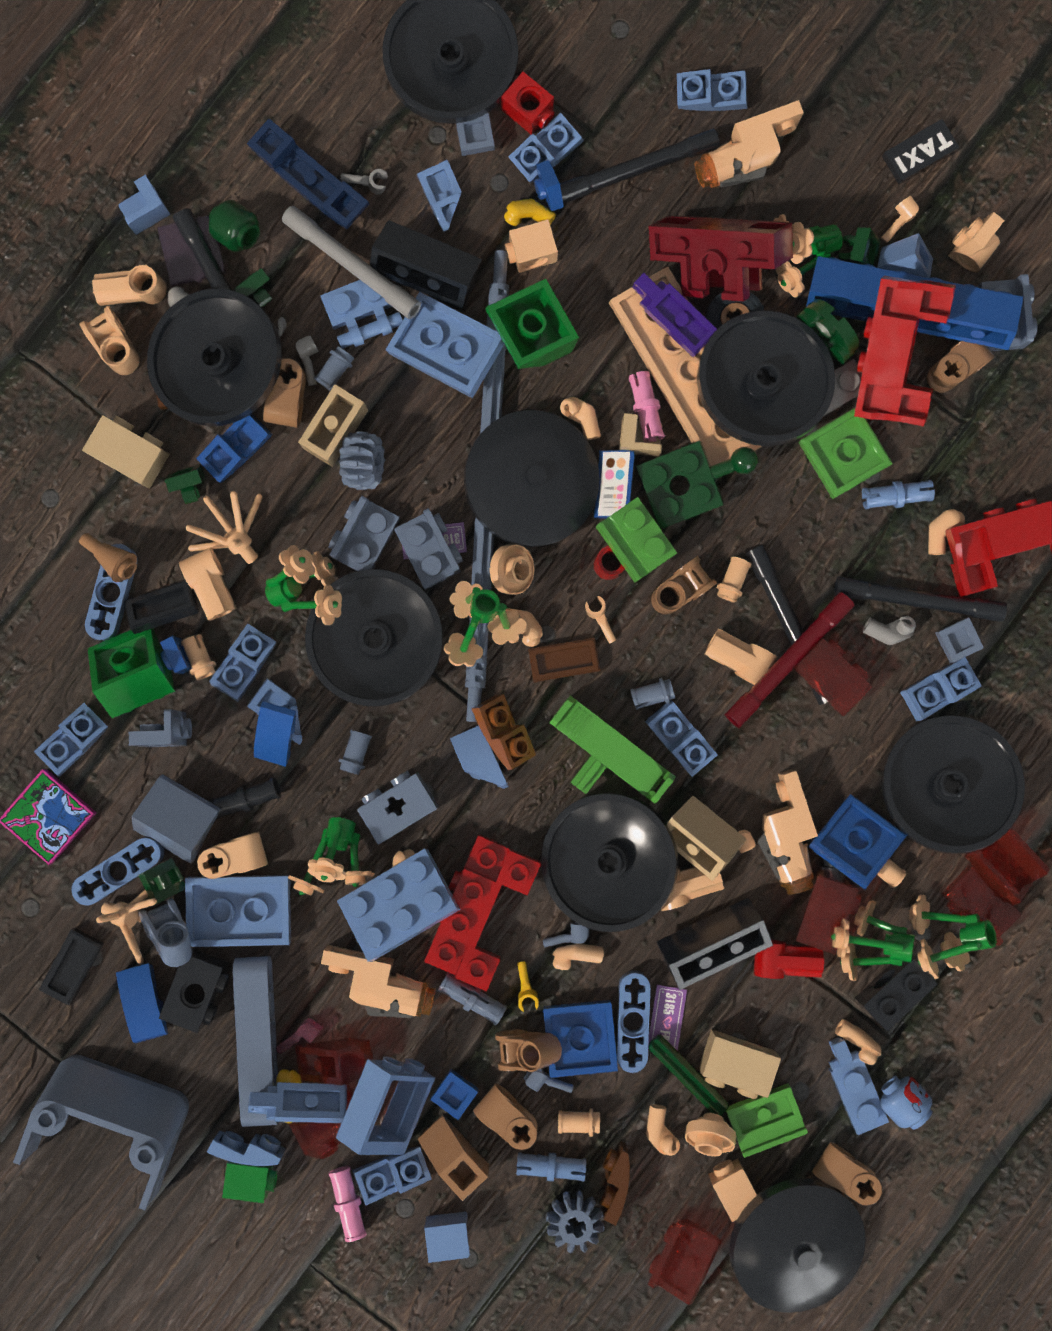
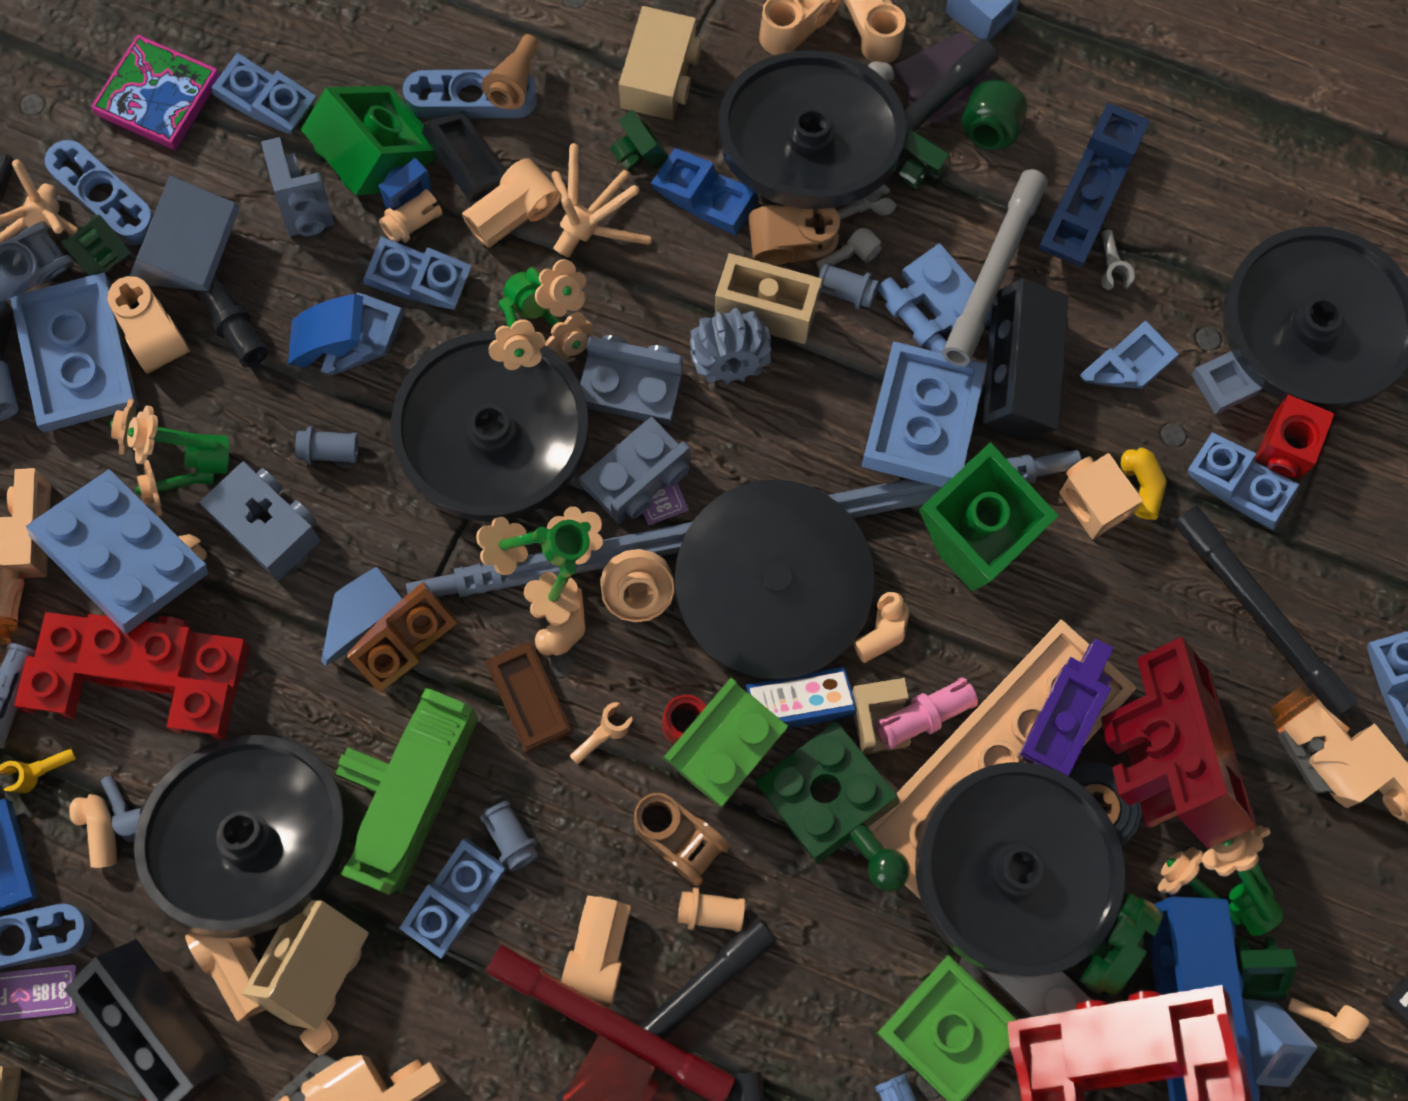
camera: 75 degrees right, 15 degrees down
(548, 186) = (1190, 491): blue plate -> none

